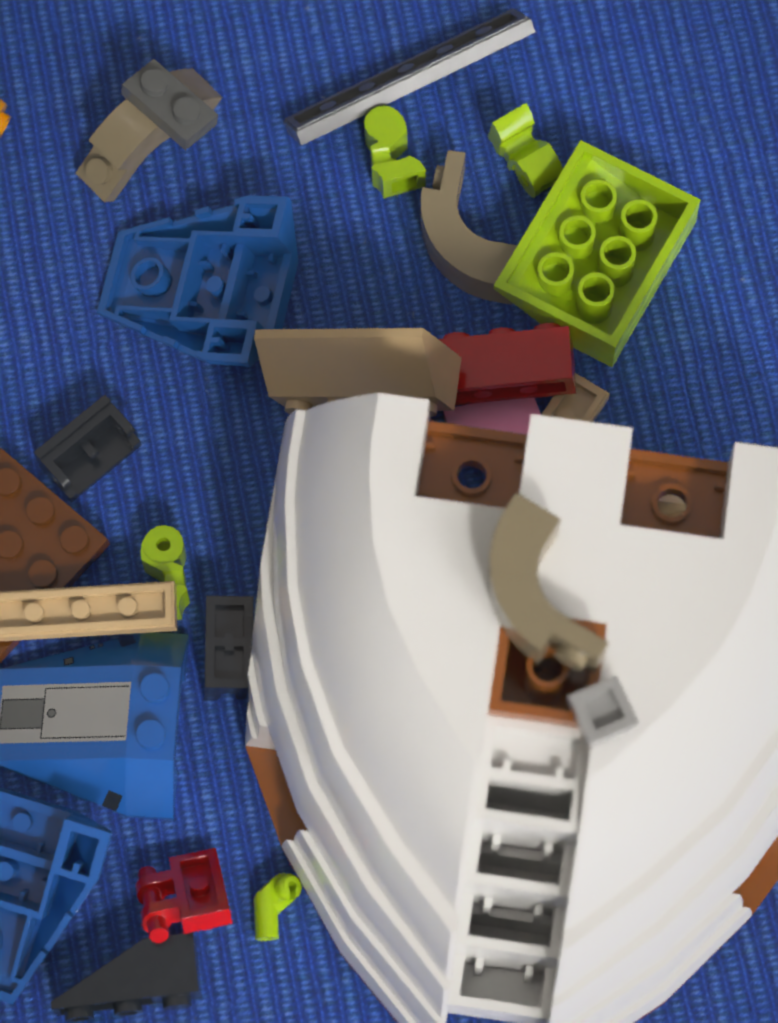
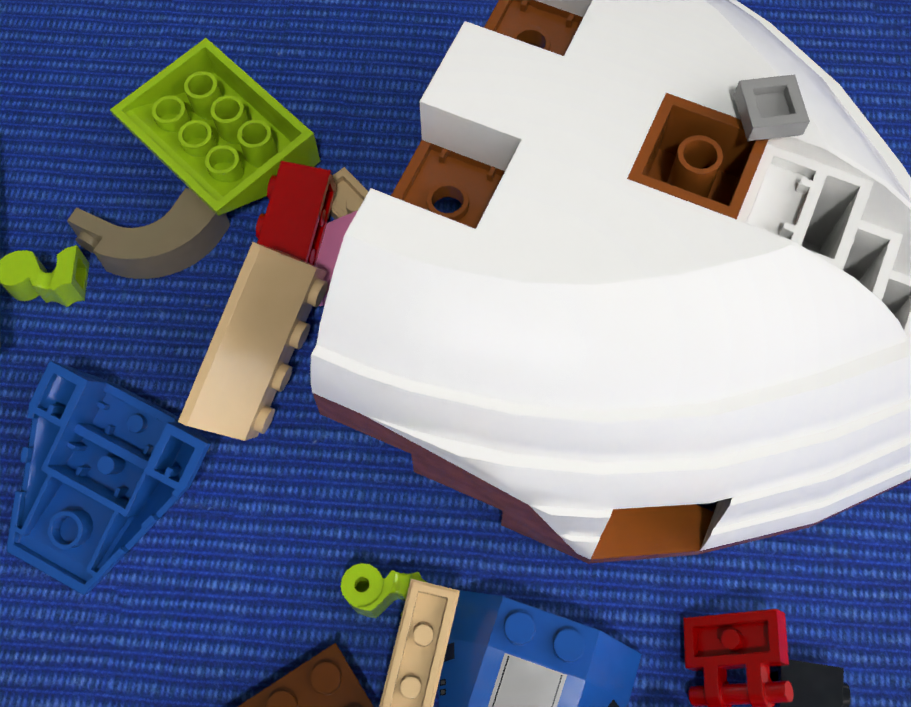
camera: 75 degrees left, 5 degrees down
(87, 448) = (228, 640): black hinge -> none
(227, 645) = (485, 549): black hinge -> none
(271, 901) = (745, 578): lime arm -> none
(528, 619) = (619, 146): dark tan arch -> none
(531, 159) = (109, 165): lime leg -> none

